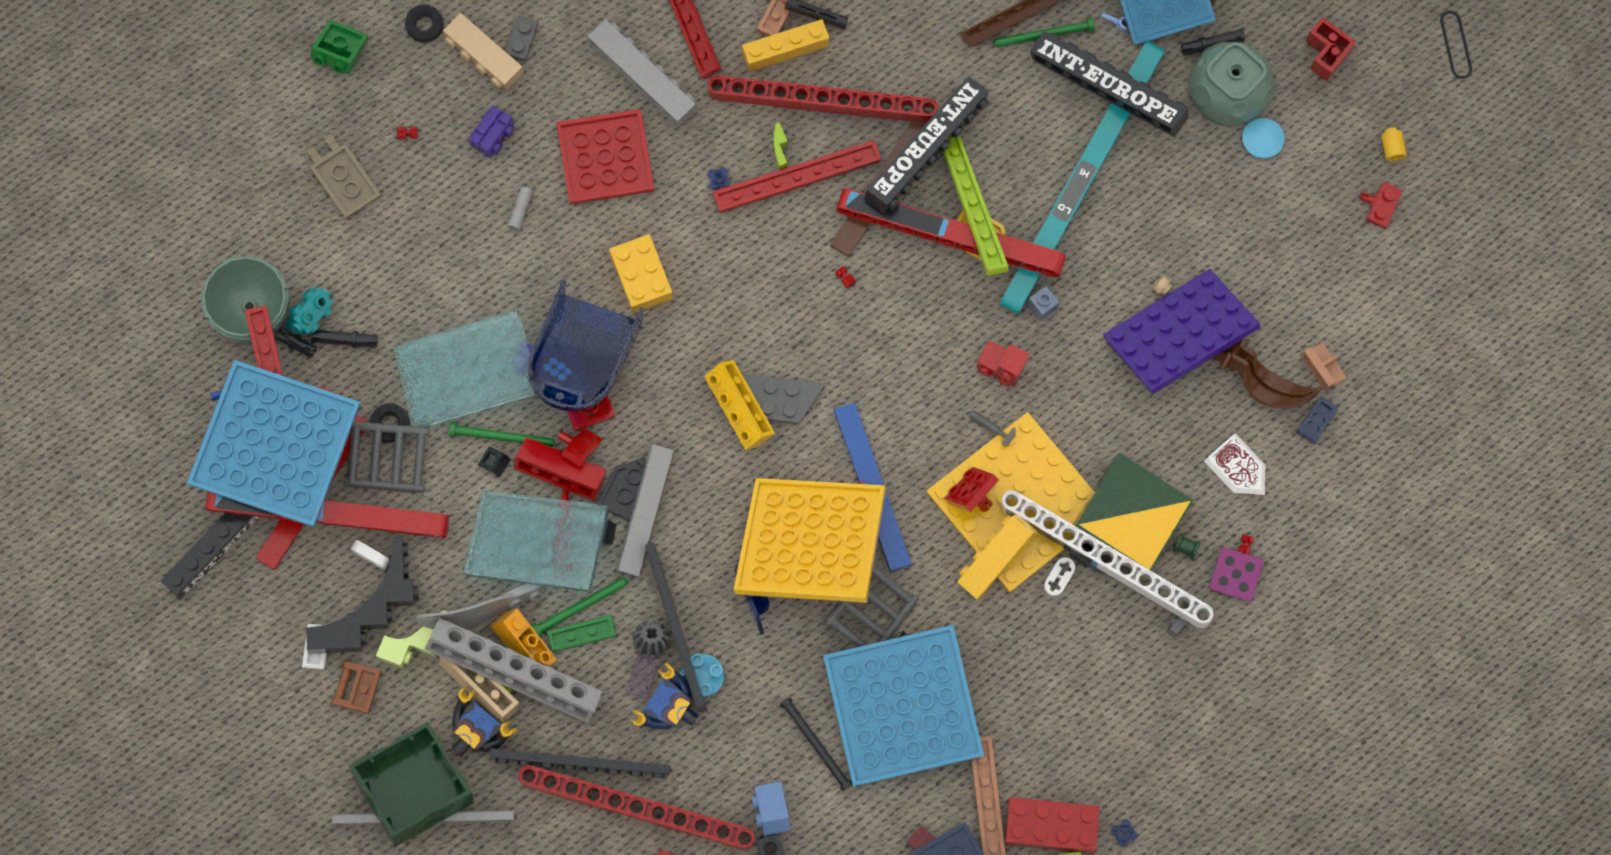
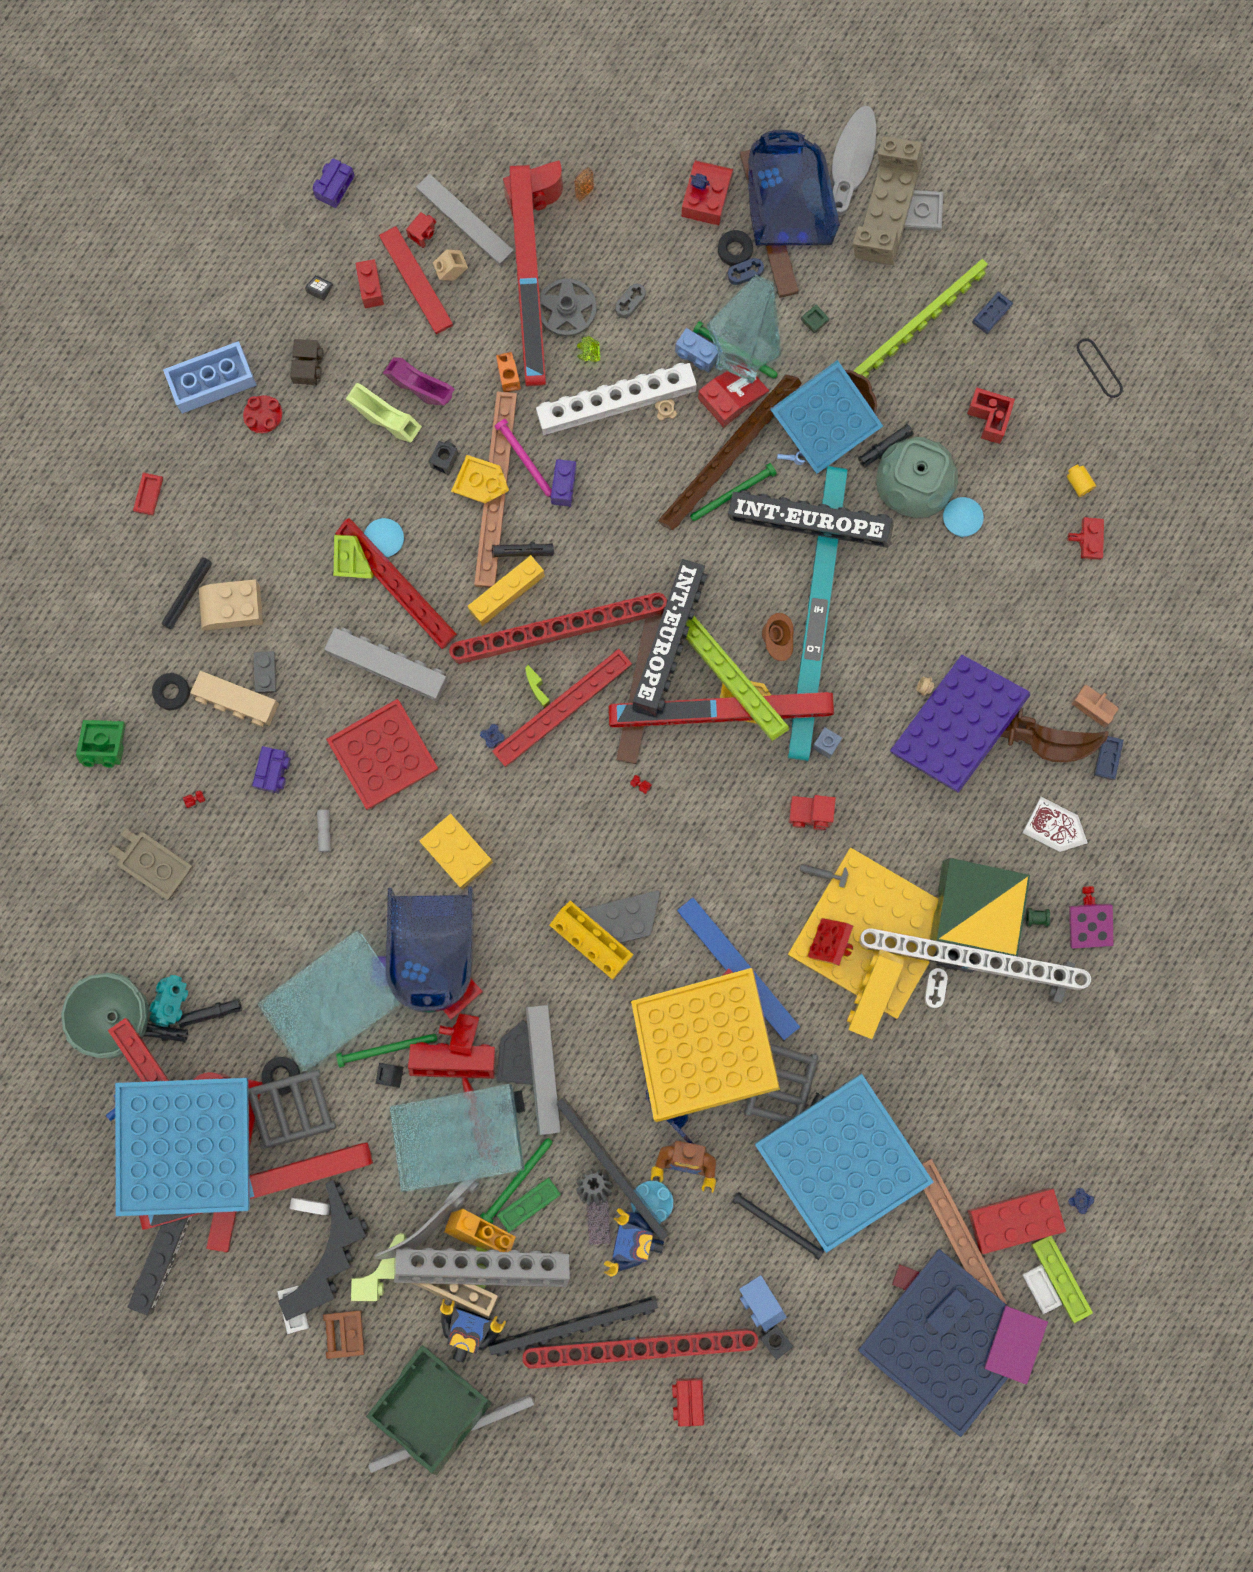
camera: 15 degrees left, 5 degrees up
(752, 645) = (686, 1158): none -> dark orange torso
(1035, 184) = (778, 636): none -> dark orange piece

